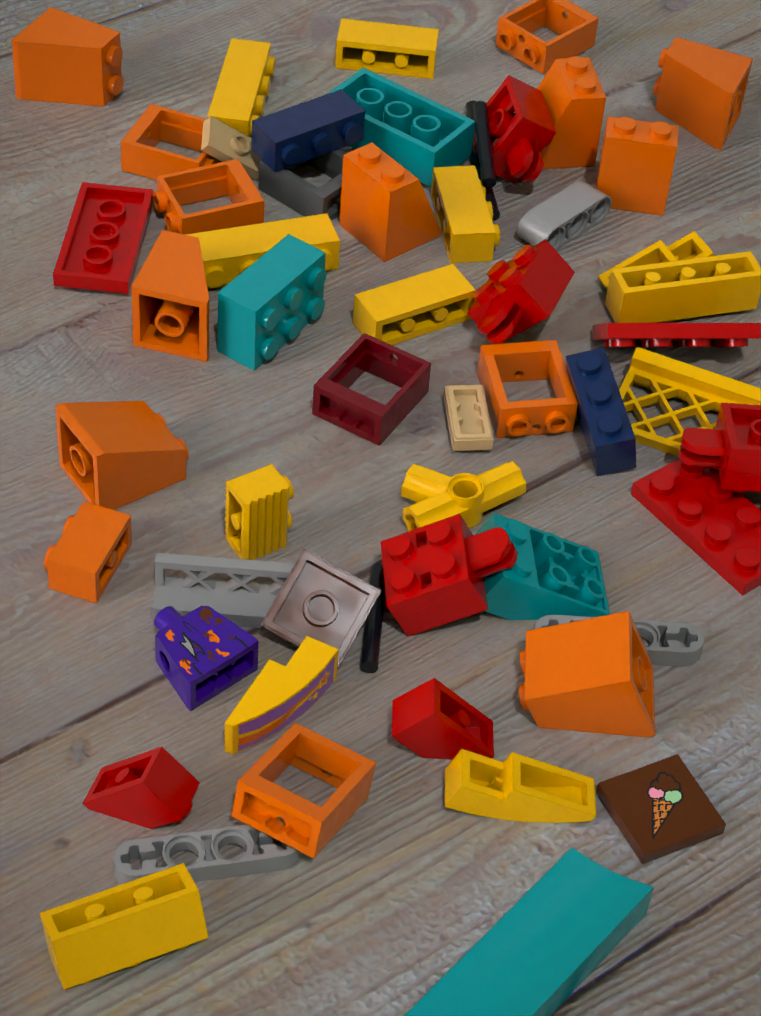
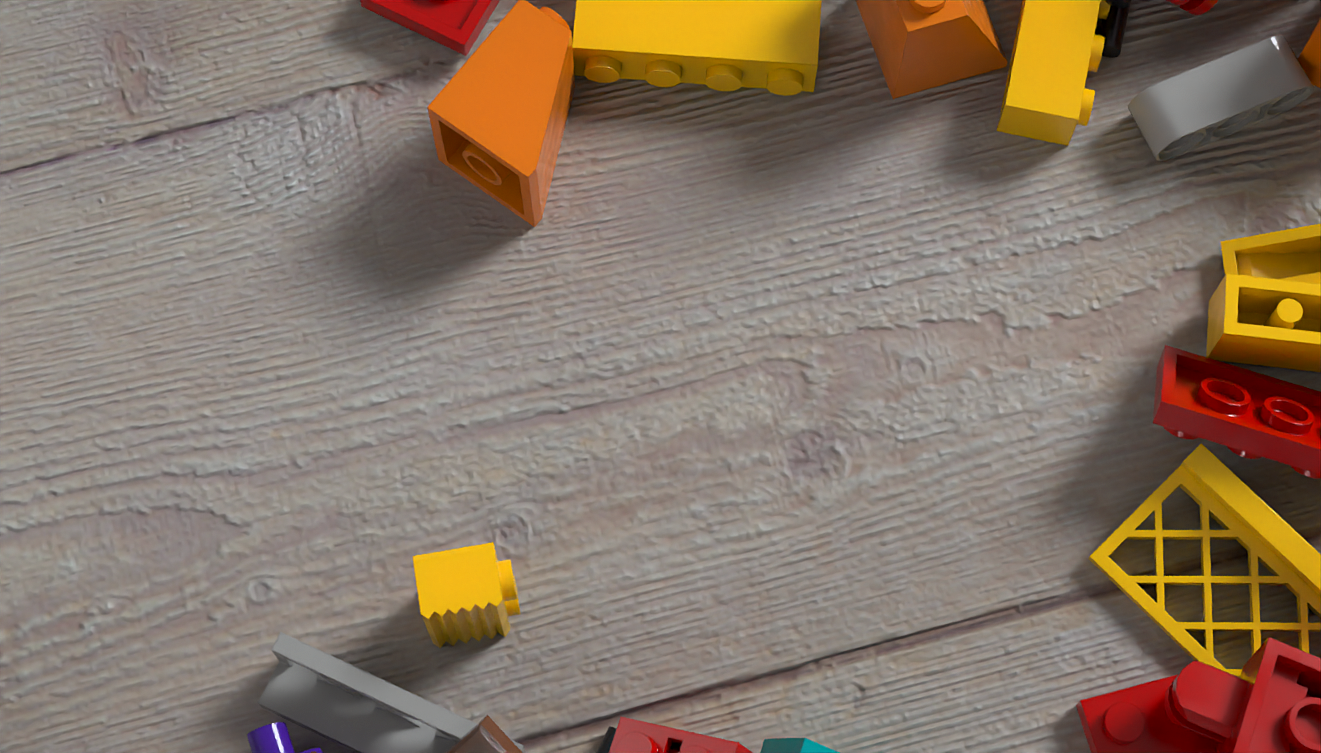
camera: 25 degrees right, 25 degrees up
(88, 551) = (207, 567): orange brick -> none
(118, 451) = (318, 393): orange slope -> none
(271, 302) = (657, 166): teal brick -> none
(358, 413) = (701, 418): dark red window -> none
(414, 305) = (888, 223): yellow brick -> none
(464, 493) = (769, 622): yellow piece -> none
(468, 417) = (878, 480): tan plate -> none
(520, 292) = (1052, 278): red brick -> none
(525, 363) = (1007, 396): orange window -> none
(601, 412) = (1083, 553): dark blue brick -> none

